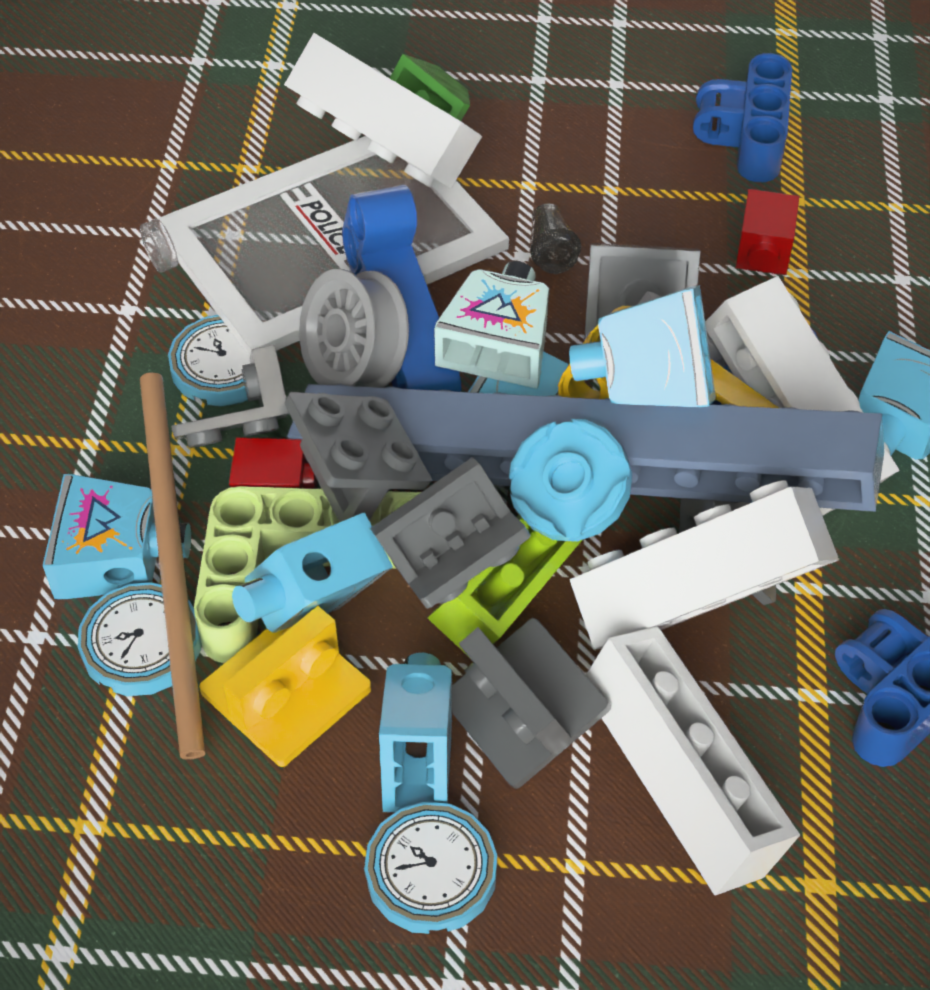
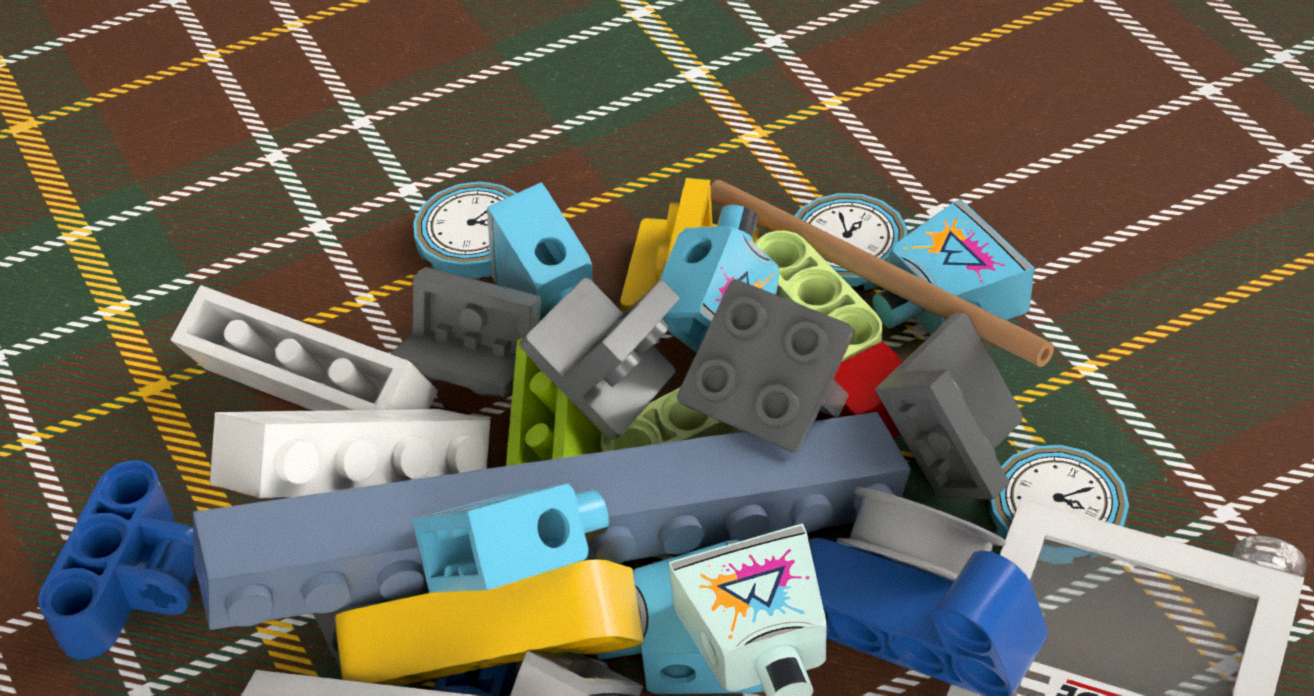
camera: 150 degrees right, 5 degrees down
(570, 480) = (528, 436): medium azure tile -> none

